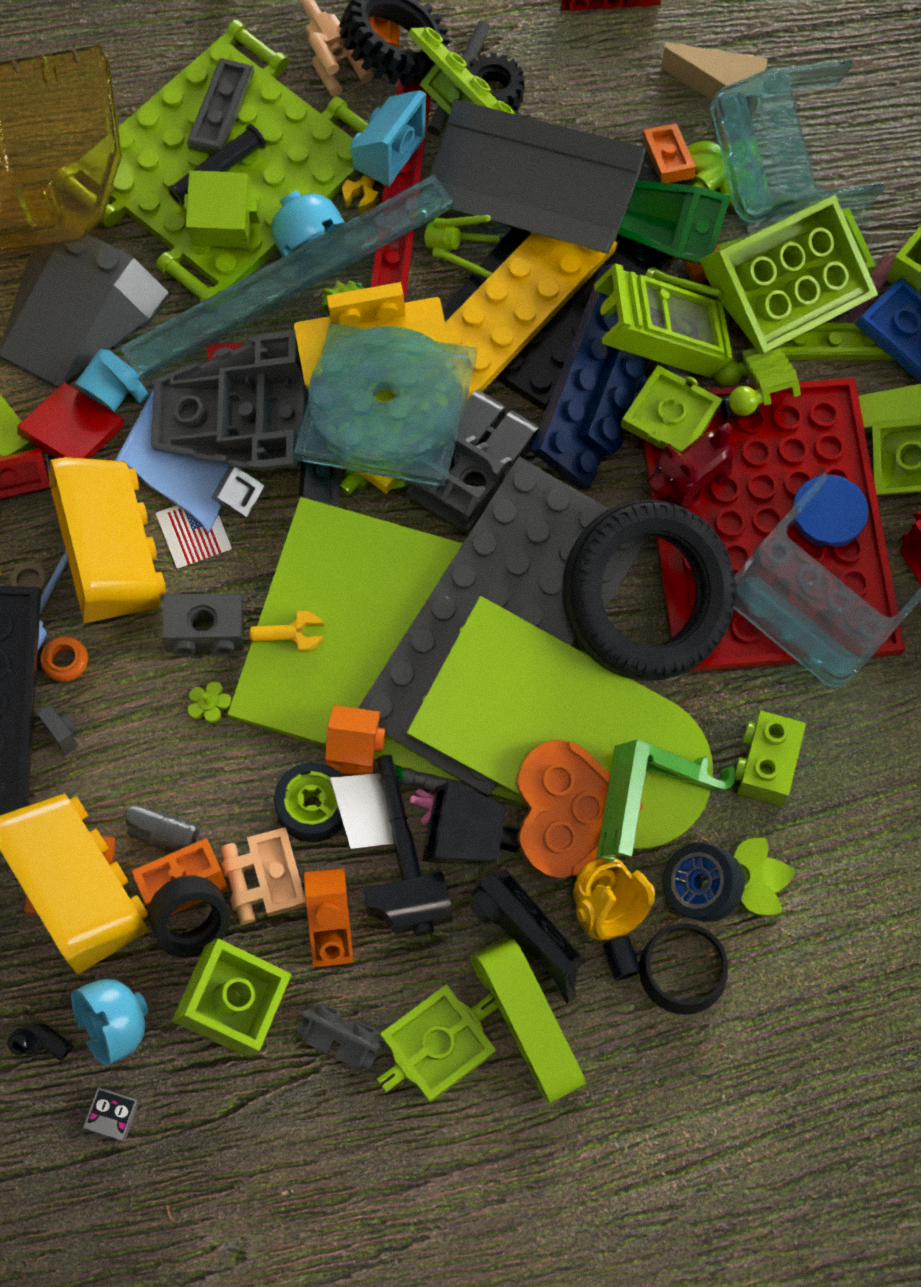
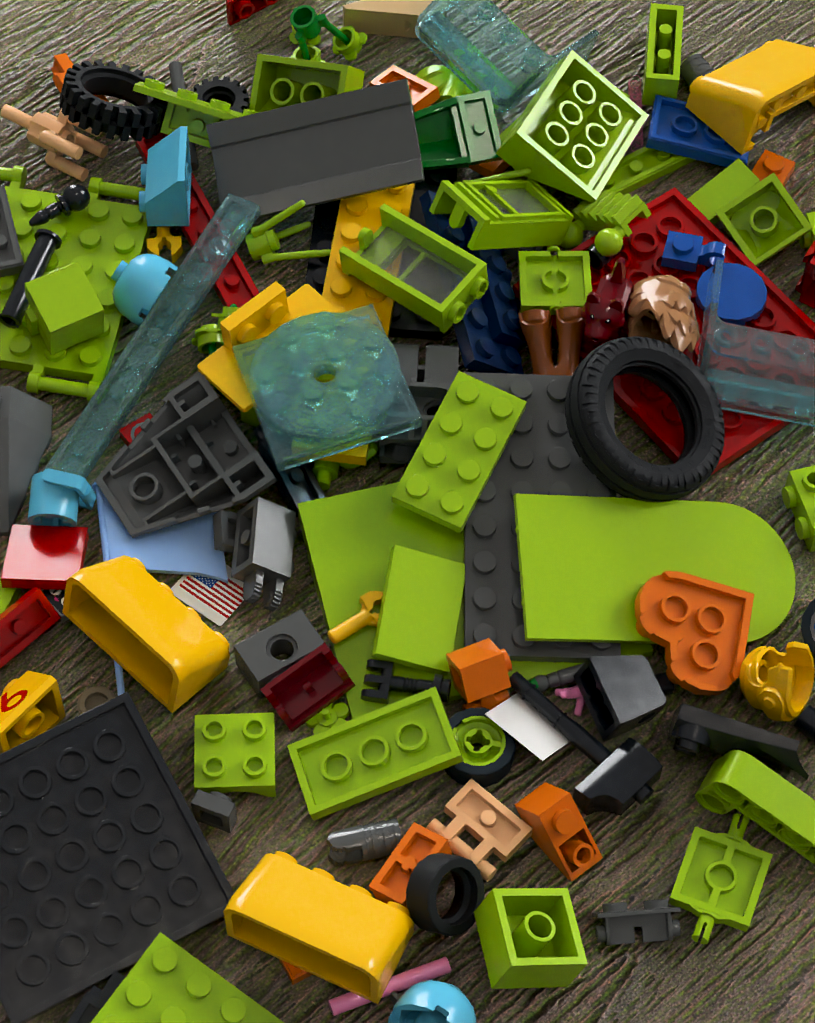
camera: 30 degrees left, 10 degrees down
(58, 645) = (177, 737): orange piece -> none
(107, 689) = (235, 753): none -> lime piece
(107, 966) = (397, 983): none -> bright pink bar
(204, 666) = (308, 687): none -> dark red hinge
(218, 757) = (374, 753): none -> lime plate
(249, 523) = (264, 550): none -> dark grey hinge
(302, 109) = (74, 198): none -> black bar
(311, 731) = (387, 682): none -> black hinge
(339, 651) = (419, 610): none -> lime tile
(461, 528) = (459, 452): none -> lime plate
(544, 337) = (417, 269): none -> lime door
(571, 100) = (291, 81): none -> lime slope
(621, 47) = (307, 27): none -> plant
(622, 455) = (537, 331): none -> dark orange piece
(626, 788) = (737, 585): bright green hinge -> none
(740, 499) = (663, 312): none -> medium nougat head
(820, 447) = (687, 251): none -> blue plate

